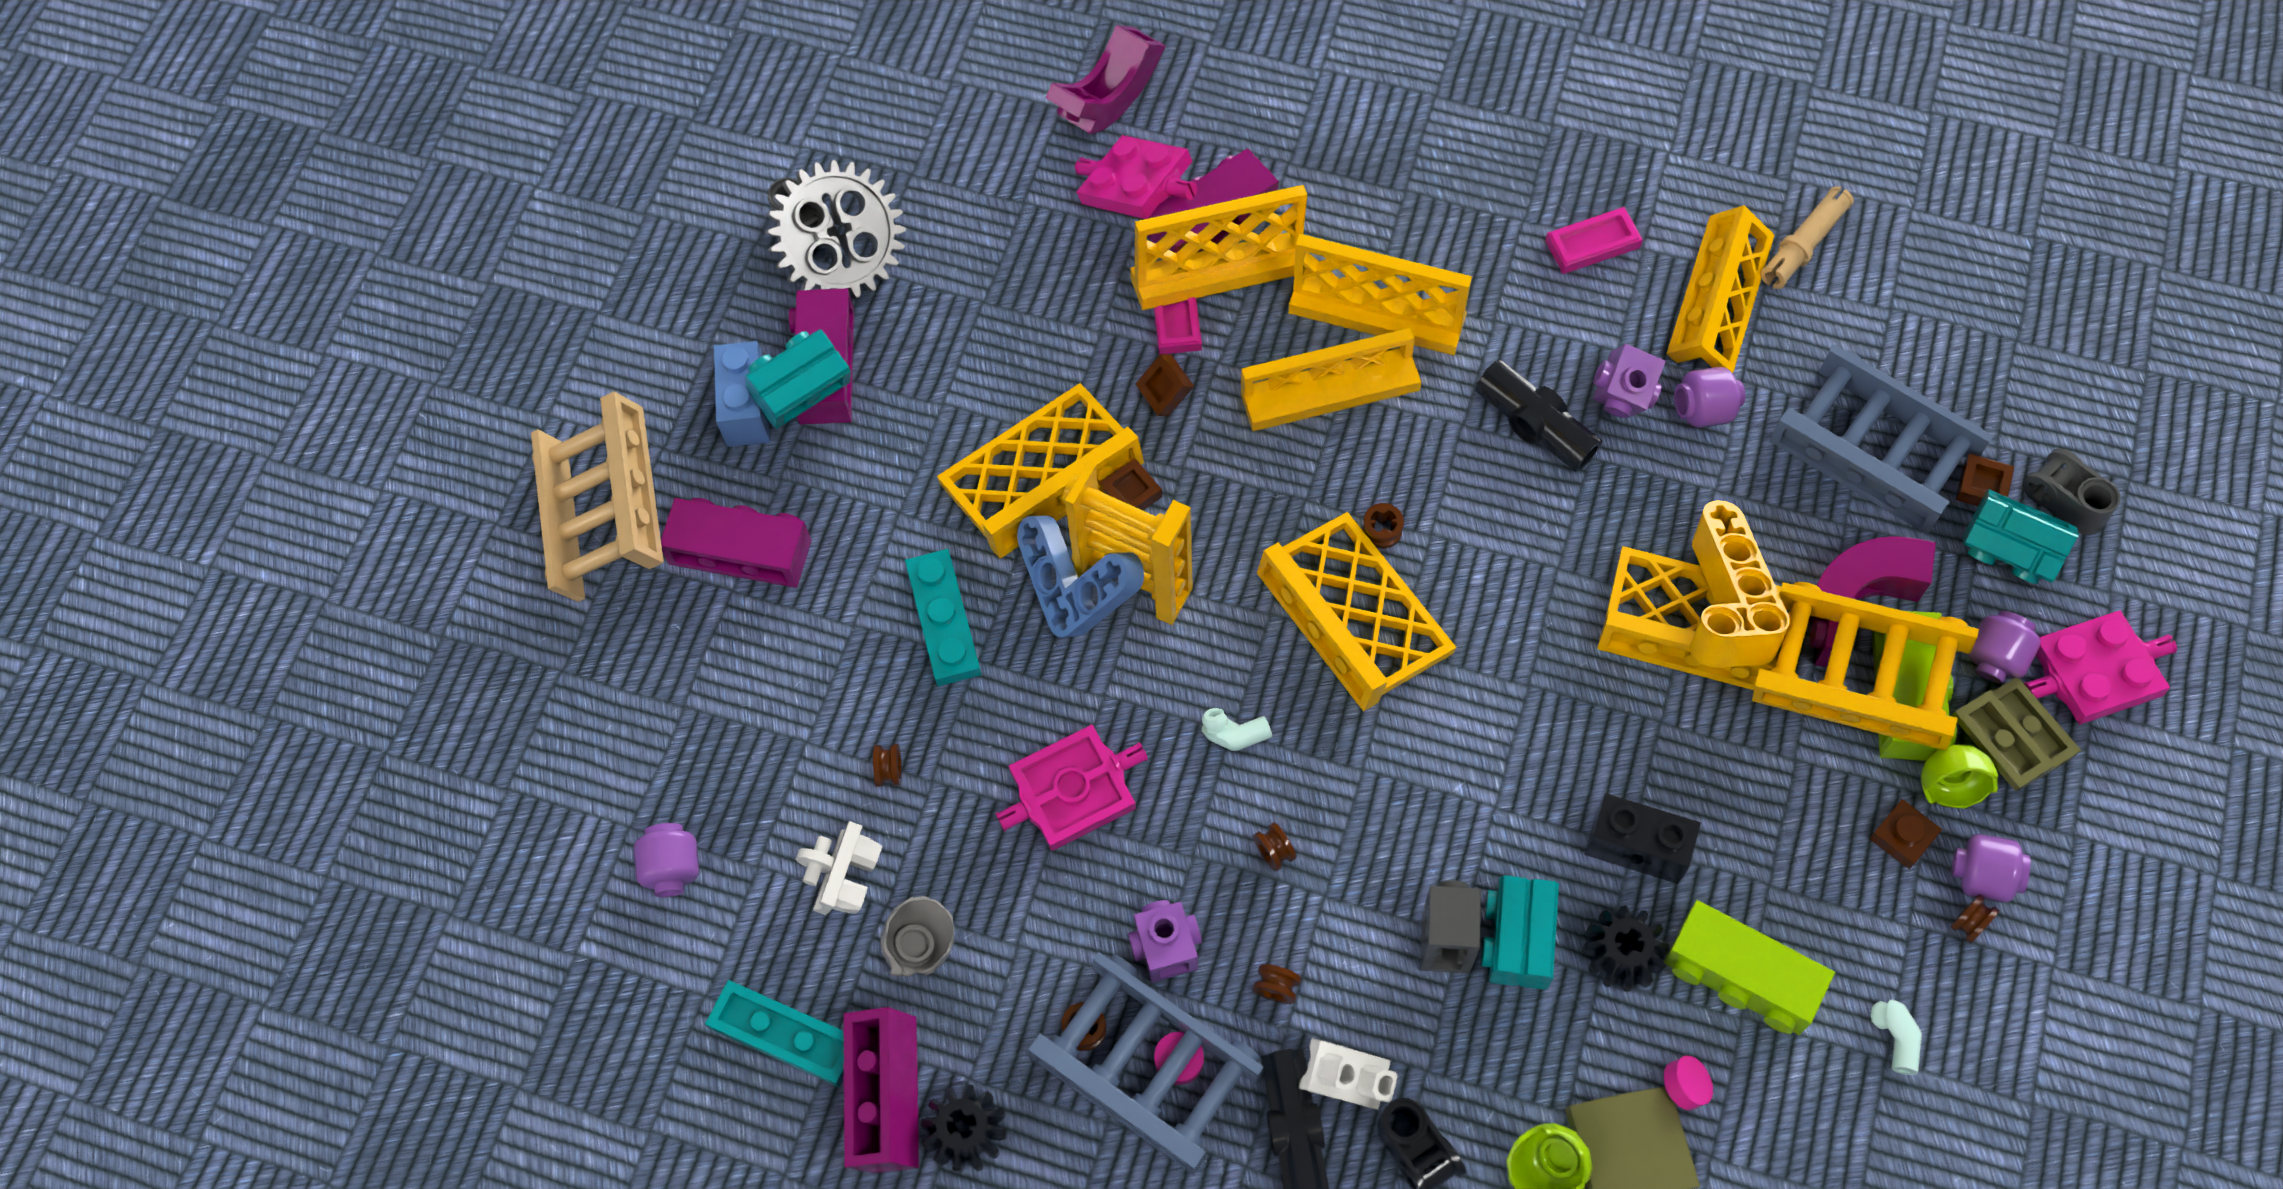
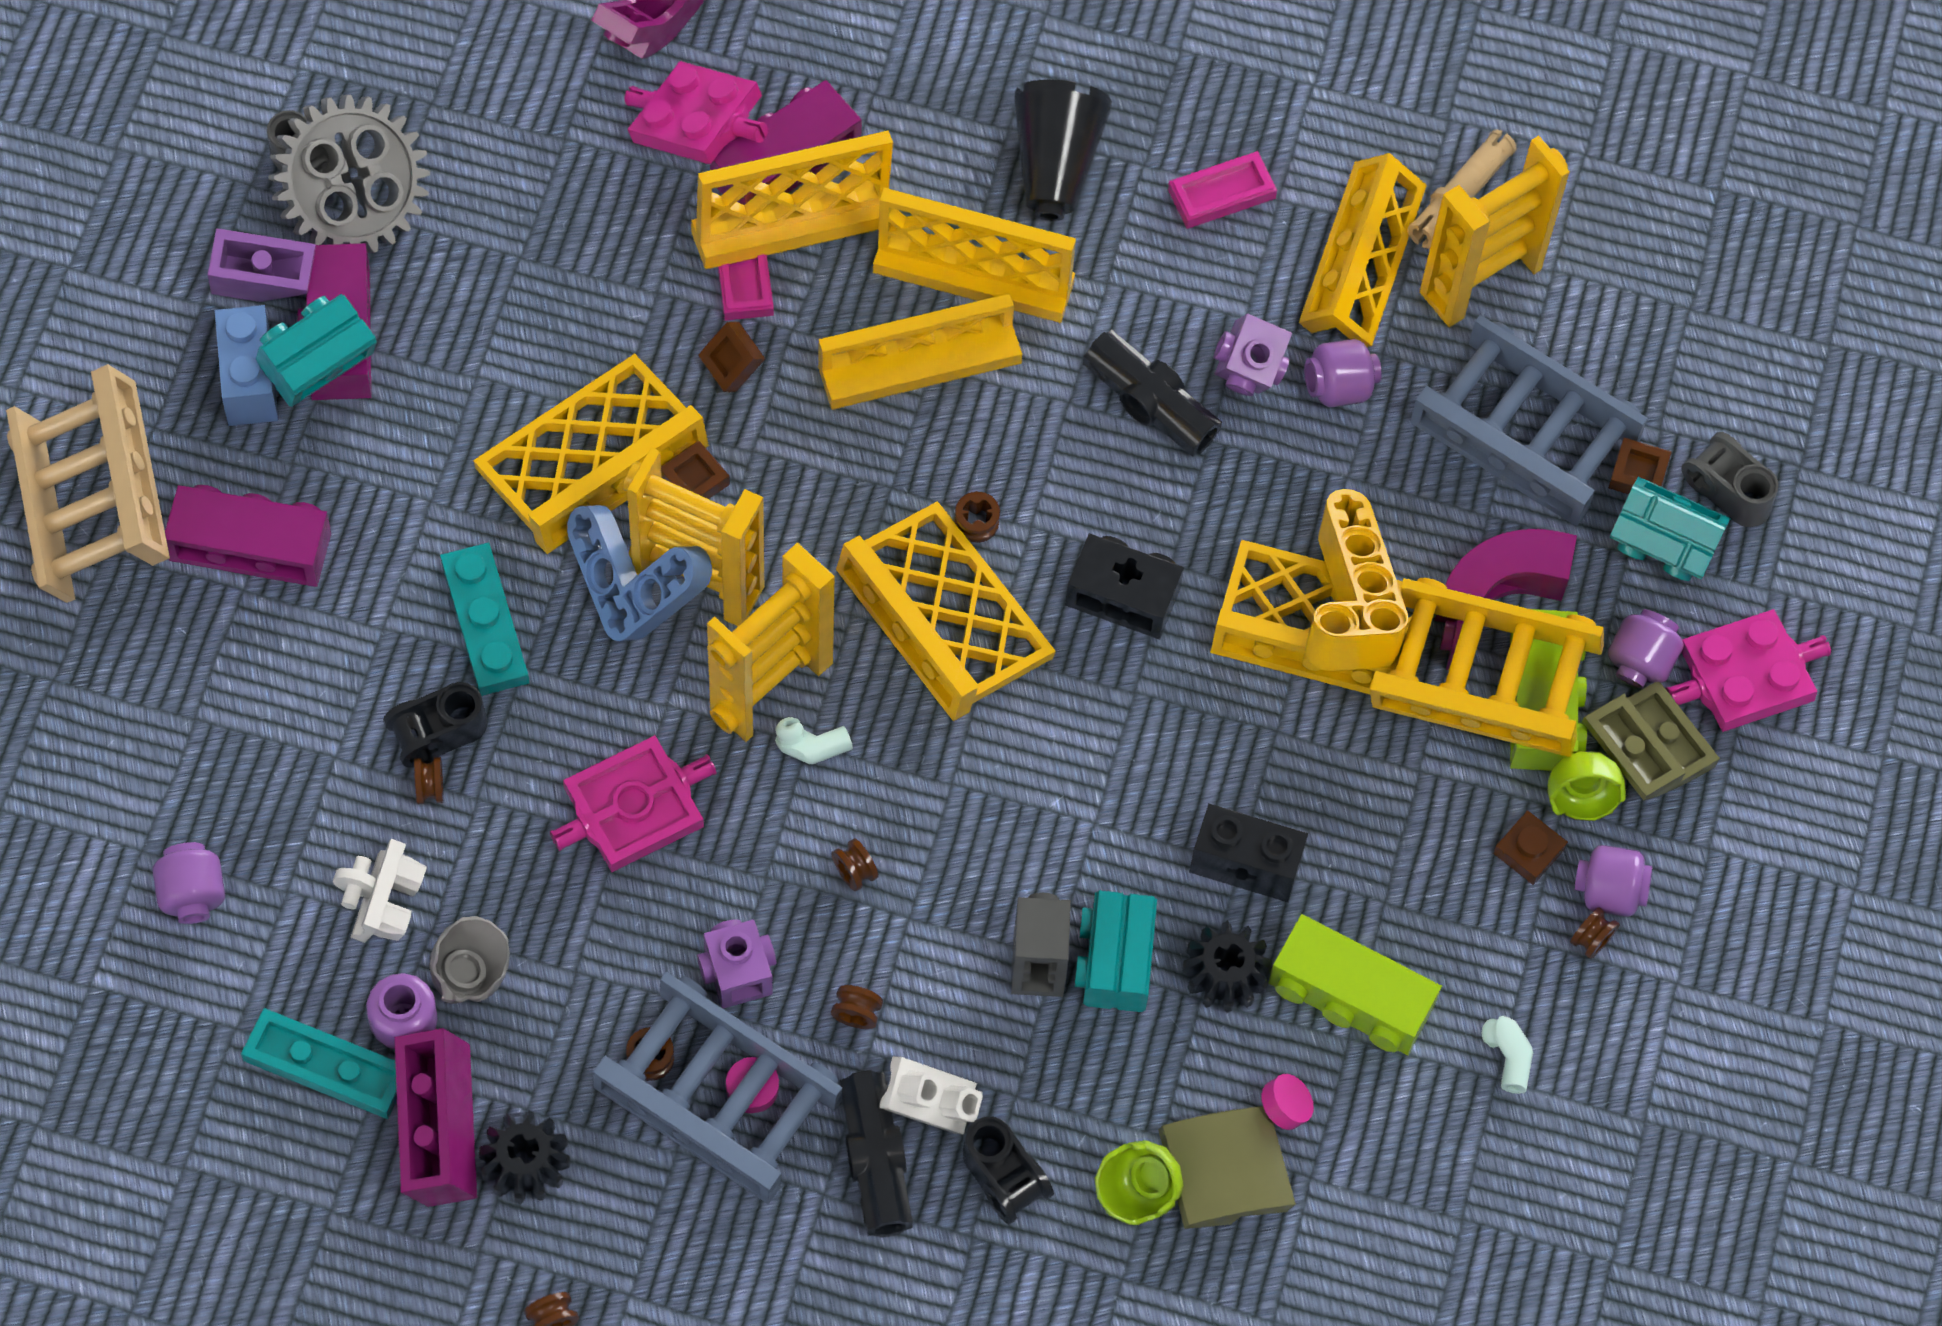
camera: 10 degrees left, 0 degrees up
(754, 308) = (259, 266): none -> medium lavender slope
(850, 971) = (400, 1007): none -> medium lavender head
(893, 713) = (434, 726): none -> black piece
(1208, 632) = (783, 633): none -> yellow fence
(1450, 198) = (1057, 142): none -> black cone
(1496, 594) = (1099, 589): none -> black brick
(1849, 267) = (1491, 232): none -> yellow fence

